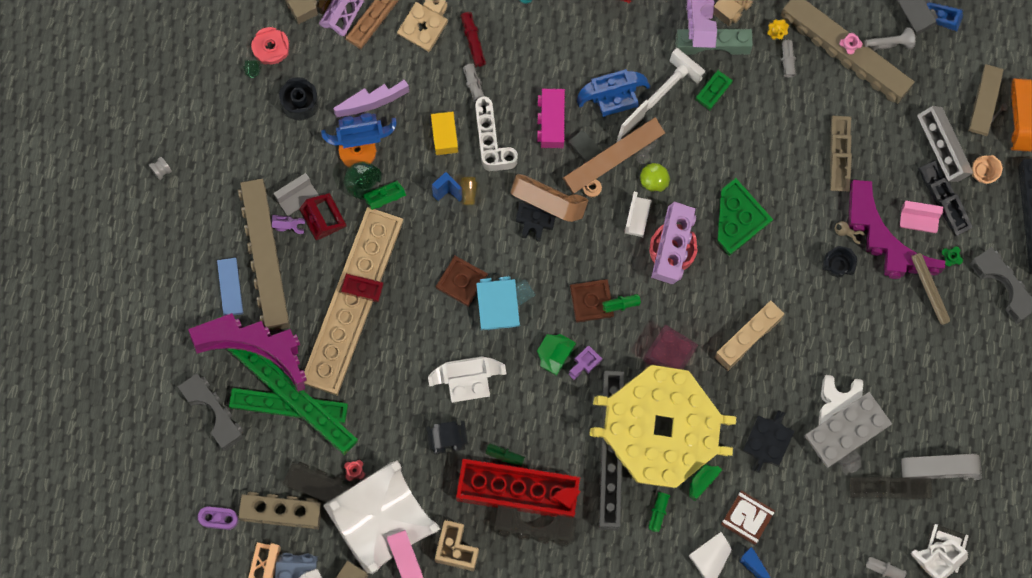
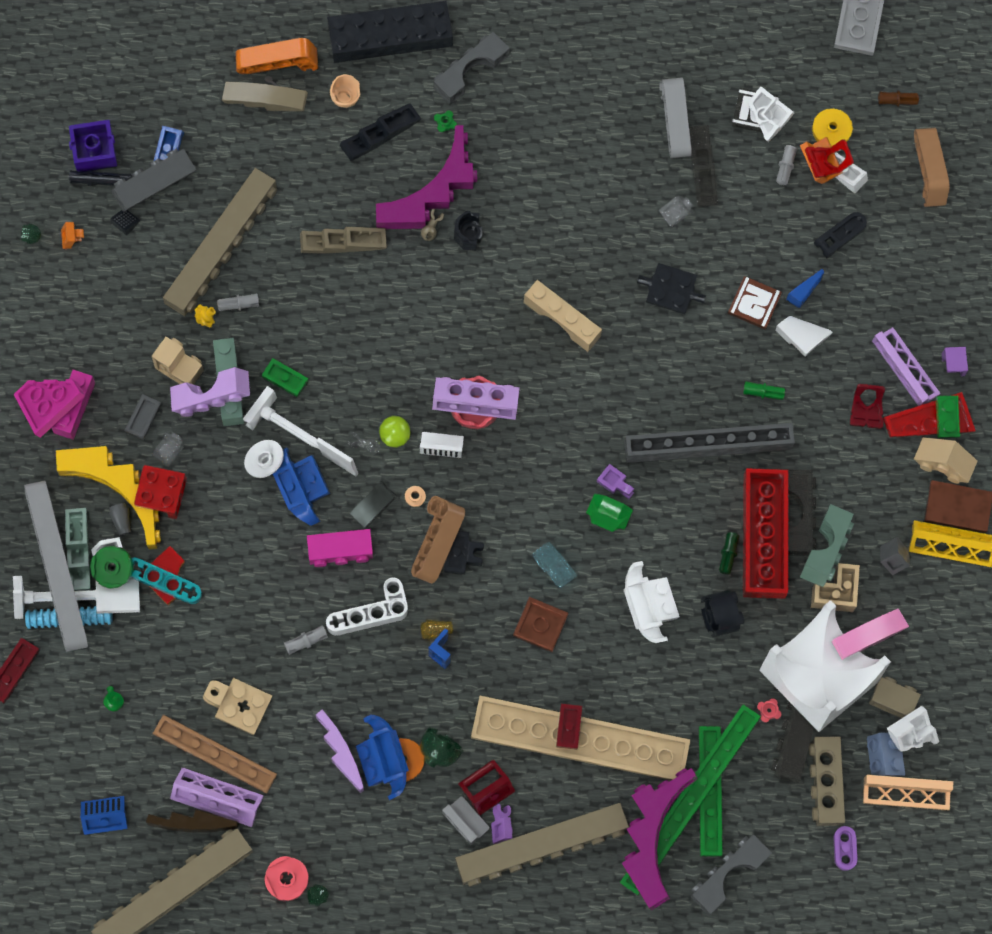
camera: 100 degrees left, 0 degrees up
(230, 286) = (583, 879): medium blue tile -> none
(295, 108) = (359, 822): black brick -> none
(384, 195) = (454, 720): green plate -> none
(444, 133) = (372, 663): yellow panel -> none
(473, 40) = (254, 646): dark red pin -> none
(478, 529) = (820, 562): none -> sand green arch
(497, 303) = (565, 578): medium azure panel -> none
(567, 496) = (770, 478): red tile -> none
(588, 300) = (544, 483): copper tile -> none
(613, 155) = (378, 474): medium nougat tile -> none
(621, 303) = (544, 450): green axle -> none
(632, 421) = (677, 421): light yellow plate -> none
(640, 64) = (260, 453): none -> white dish
(670, 350) = (593, 393): clear pink brick -> none
(703, 480) = (725, 348): green slope -> none
(739, 217) = (429, 338): green plate -> none
(836, 400) = (622, 220): white piece -> none
(848, 429) = (652, 208): light grey plate -> none
(853, 39) = (219, 240): bright pink plate -> none
(907, 39) = (202, 179): light grey piece -> none
(920, 216) = (405, 155): bright pink panel -> none
(930, 288) = (486, 138): dark tan axle -> none
(945, 144) = (322, 133): light grey brick -> none

